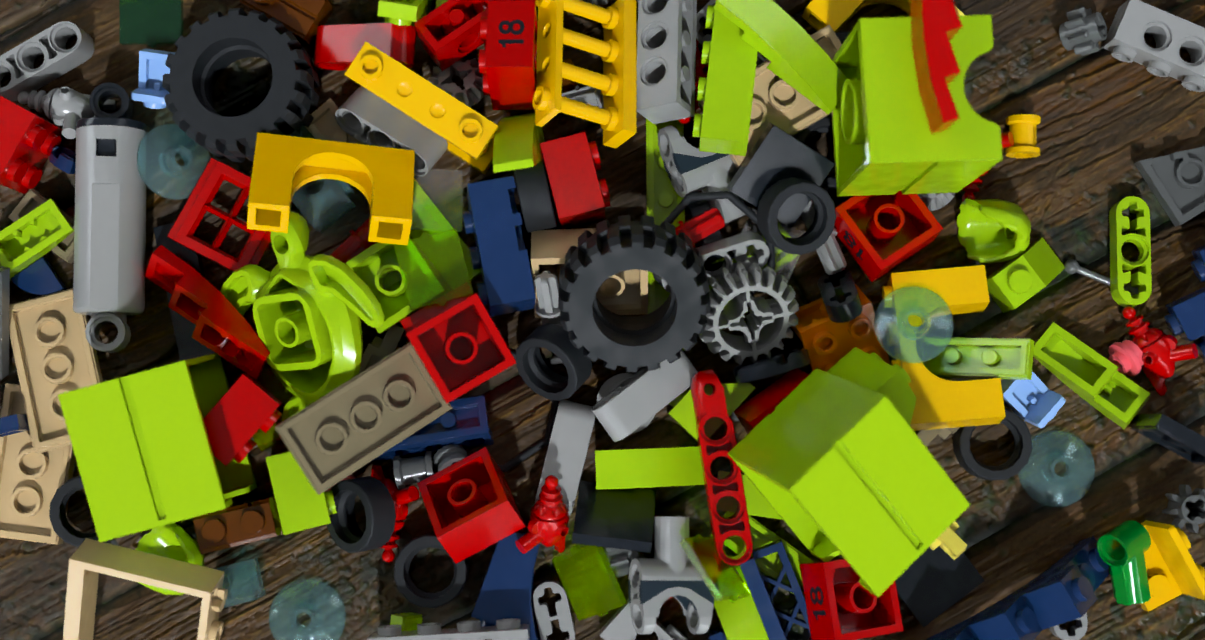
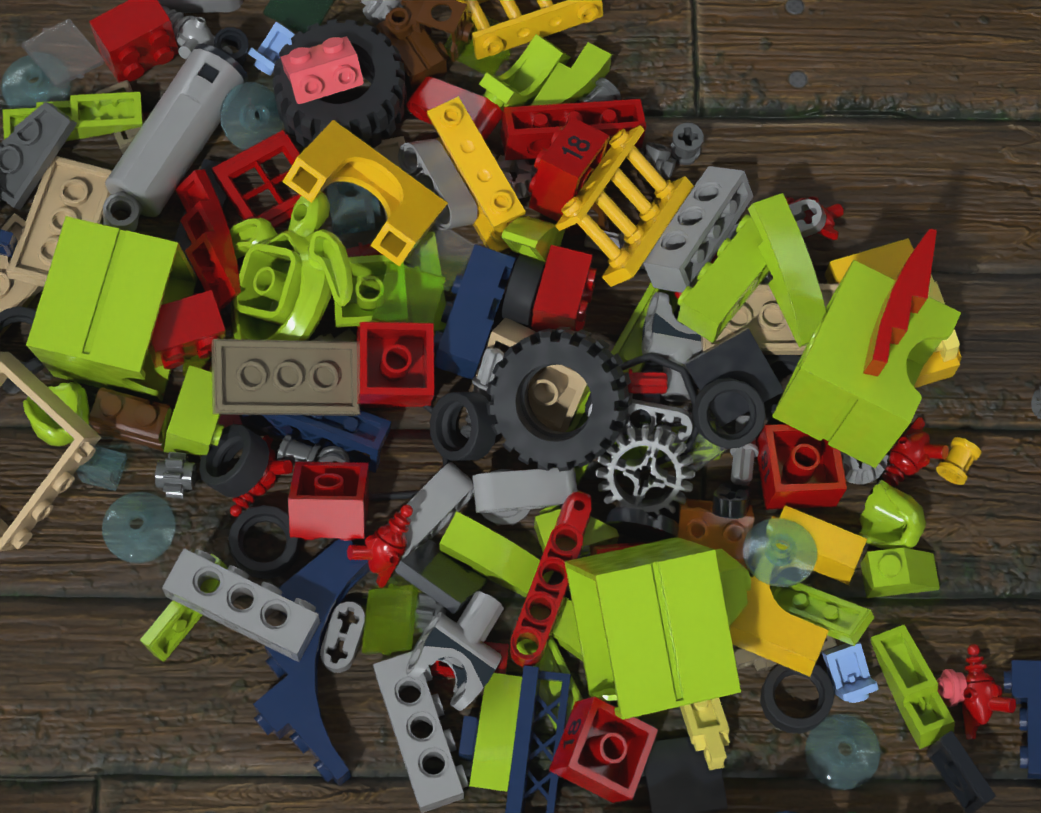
camera: 20 degrees right, 15 degrees down
(39, 278) = (90, 149): dark blue tile -> none
(63, 158) = (166, 70): dark blue tile -> none
(216, 85) = (322, 69): none -> coral bracket
(313, 555) = (176, 475): none -> dark grey gear
(718, 576) = (498, 658): clear neon green piece -> none
(1072, 267) = (986, 637): dark grey hinge -> none
(1117, 225) = (1016, 596): lime beam -> none

